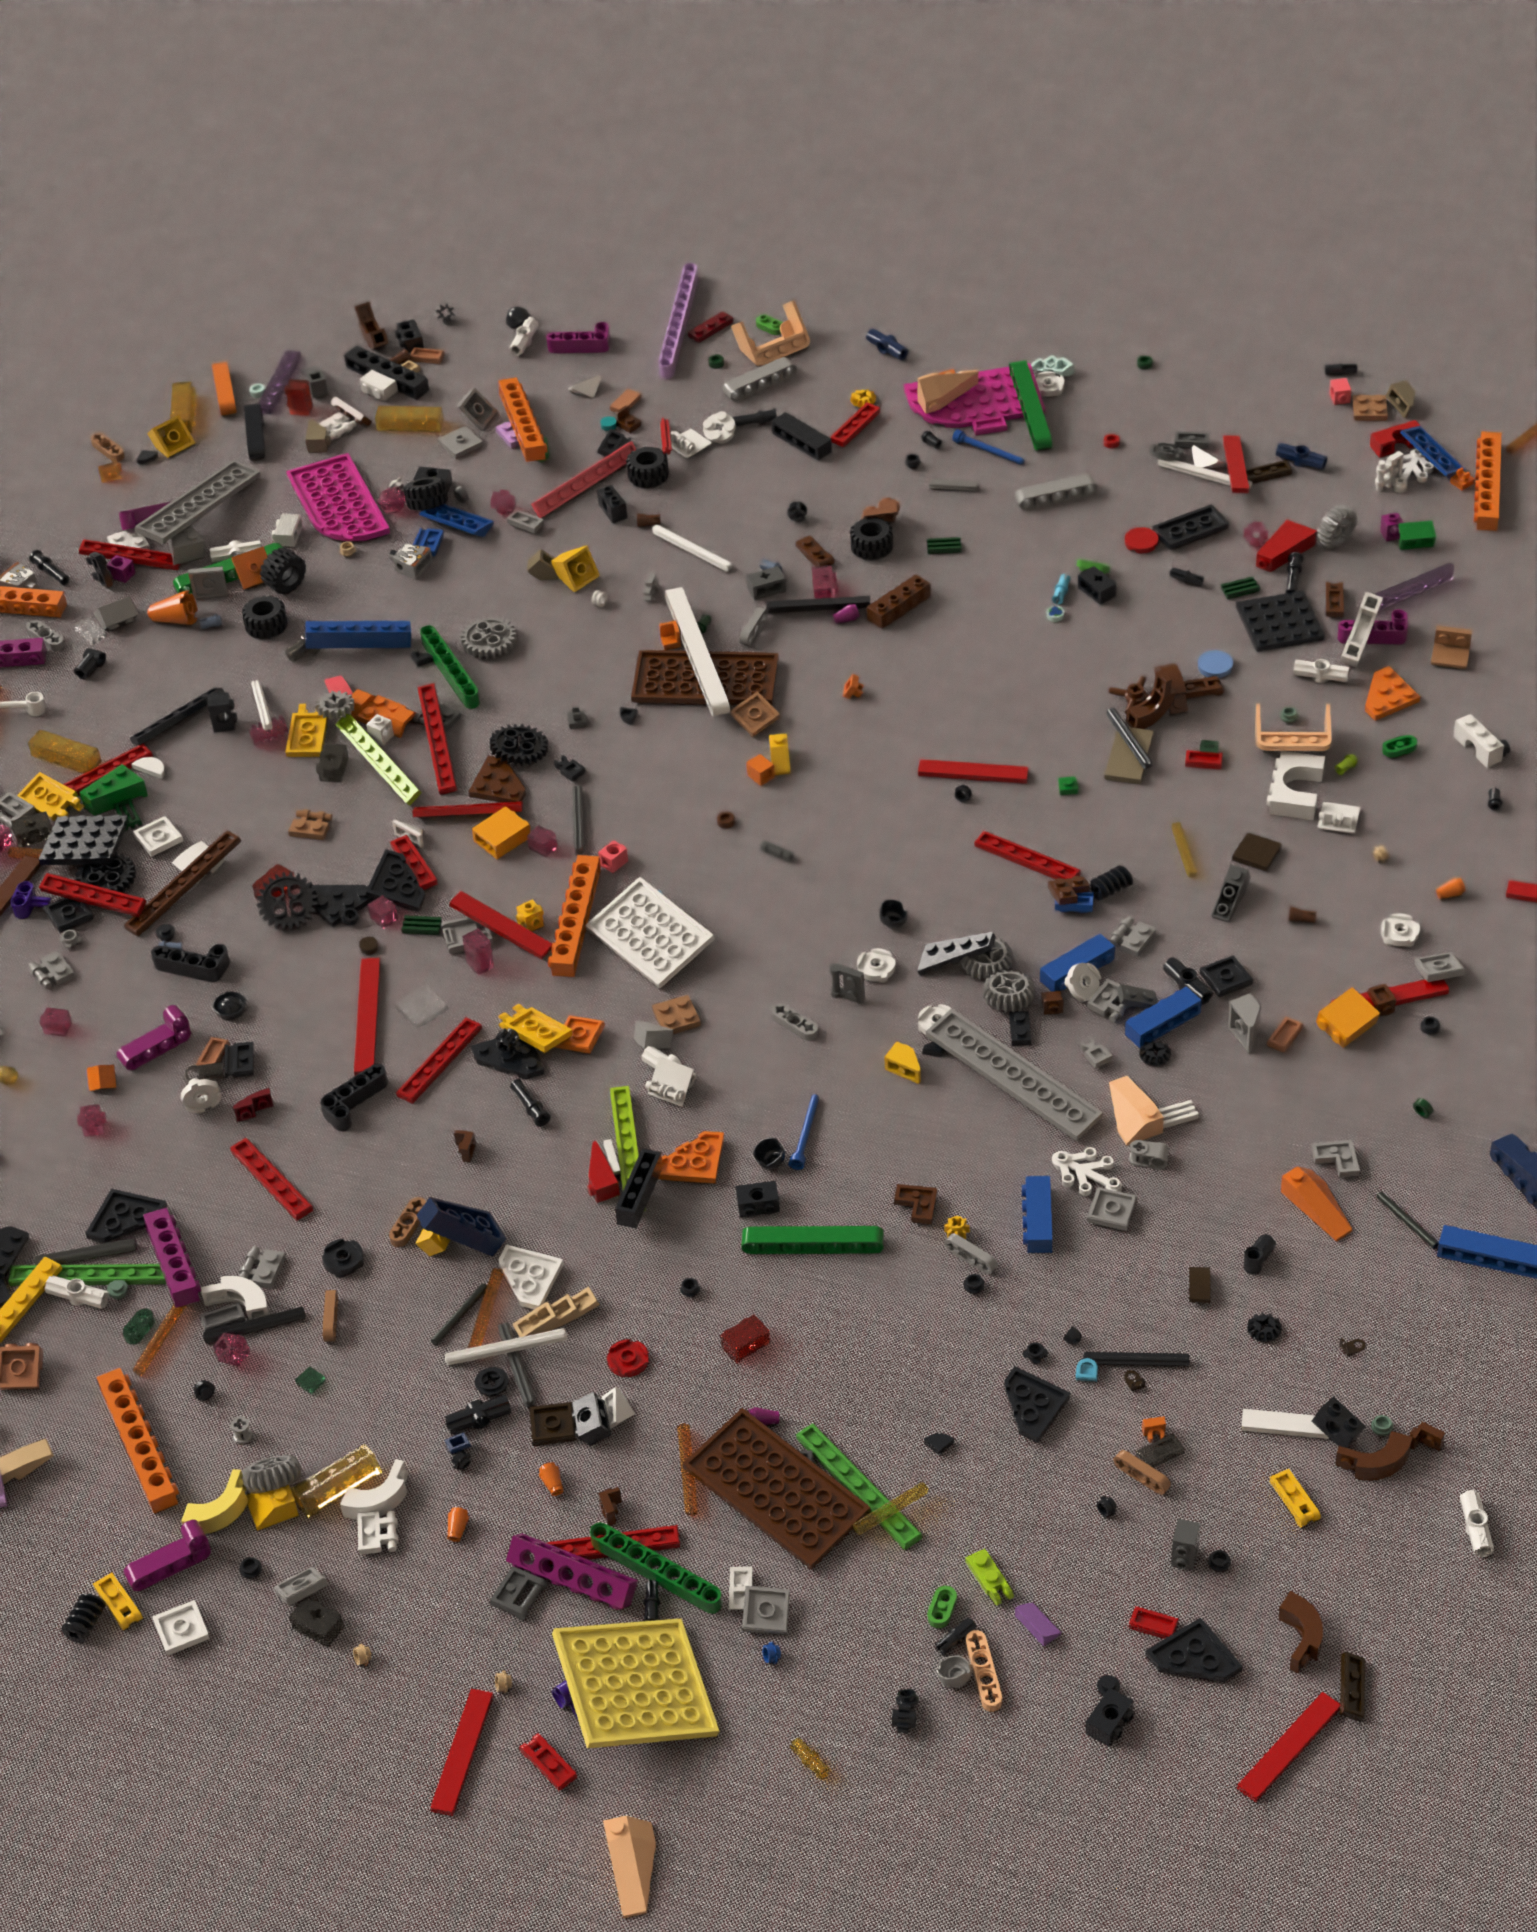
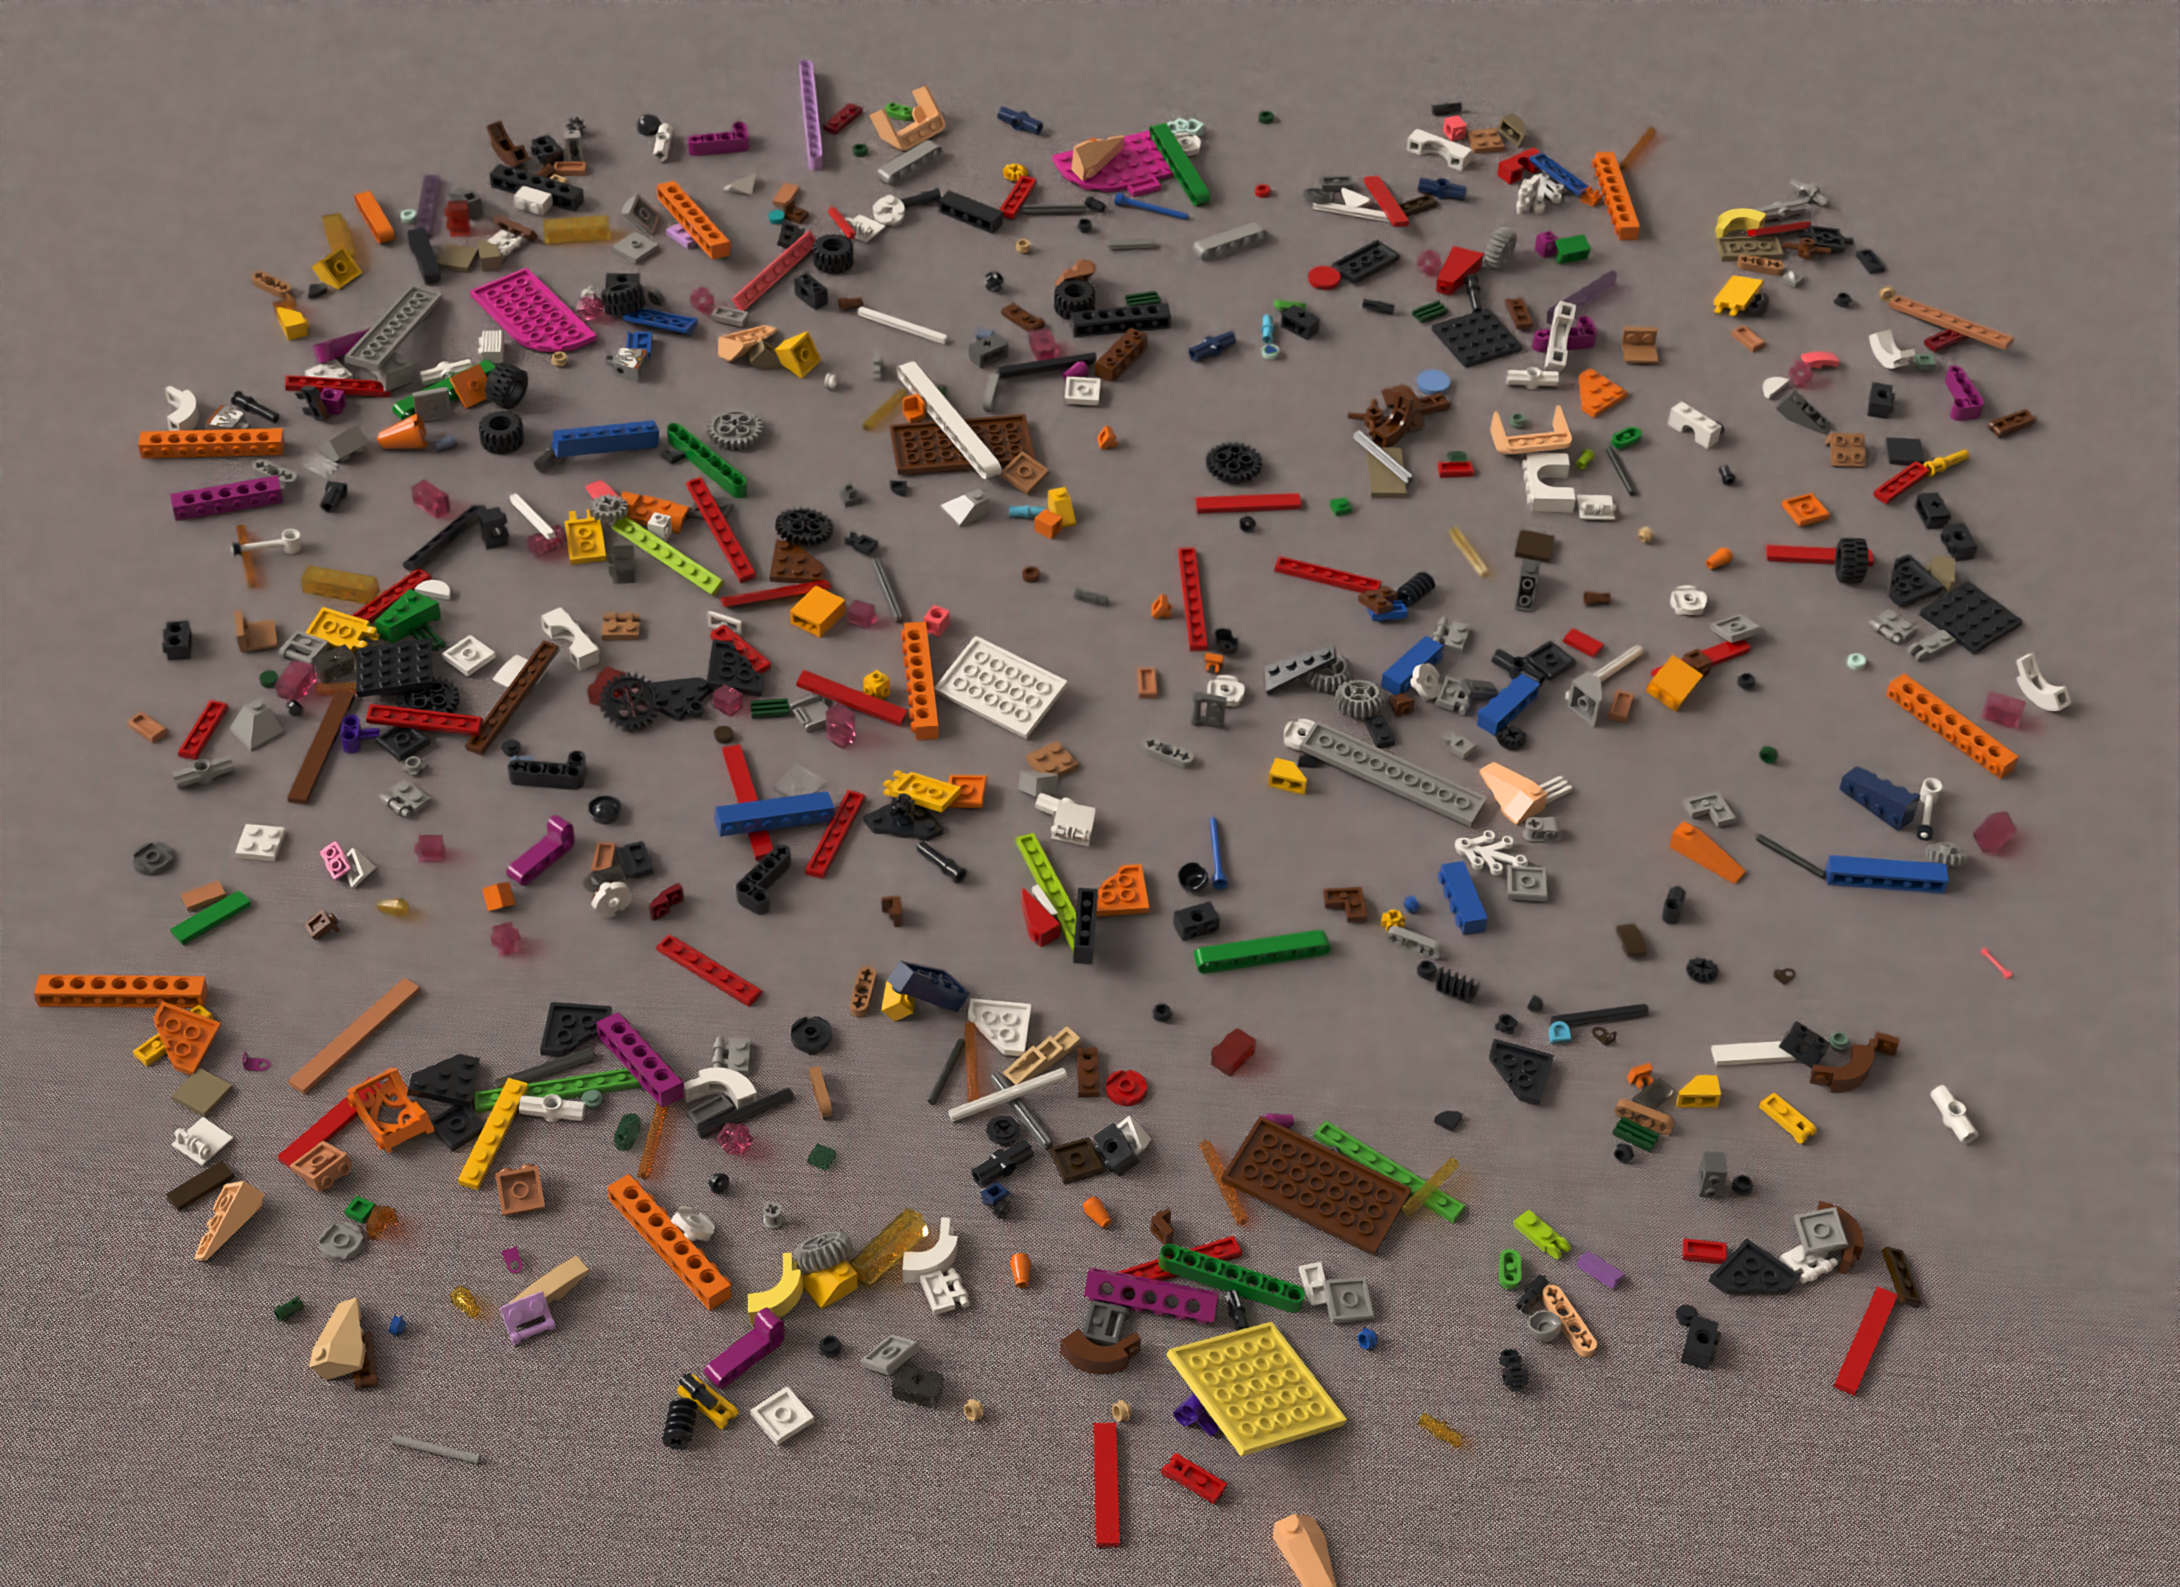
camera: 20 degrees left, 0 degrees up
(108, 1590) = (697, 1391): none -> black axle
(111, 488) = (292, 323): none -> yellow slope
(163, 1426) = (693, 1225): none -> white plate
(176, 676) = (430, 499): none -> clear pink brick
(263, 844) = (560, 626): none -> white arch
(287, 437) = (457, 258): none -> dark tan tile
(383, 1031) = (773, 813): none -> blue brick
(434, 330) = (573, 145): none -> light grey torso
(502, 1626) = (1097, 1358): none -> reddish brown arch
(520, 551) = (739, 343): none -> light nougat wedge
(595, 1336) = (1088, 1072): none -> reddish brown plate
(641, 633) = (884, 409): none -> clear yellow axle
(686, 744) = (967, 507): none -> light grey slope
(741, 754) = (1024, 511): none -> medium azure pin
(801, 946) = (1147, 683): none -> nougat tile
(842, 476) = (1023, 246): none -> tan plate
(843, 870) = (1161, 607): none -> orange tile
(846, 635) = (1082, 391): none -> white plate
(876, 932) = (1214, 660): none -> orange tile
(879, 865) = (1192, 599): none -> red tile
(888, 440) = (1055, 209): none -> dark grey axle
(908, 563) = (1120, 320): none -> black brick
(972, 727) = (1234, 462): none -> black gear
(983, 1213) = (1411, 904): none -> blue plate
(995, 1305) = (1456, 985): none -> black piece
(996, 601) = (1212, 346): none -> dark blue piece
(1130, 1486) = (1637, 1131): none -> dark green tile
(1209, 1456) = (1700, 1092): none -> yellow slope
(1257, 1647) = (1799, 1262): none -> white plate
(1270, 961) = (1583, 642): none -> red tile
(1277, 1623) = (1820, 1231): none -> light grey plate
(1294, 990) = (1617, 664): none -> white axle
(1301, 404) = (1423, 142): none -> white arch
(1381, 781) = (1620, 471): none -> pearl dark grey bar

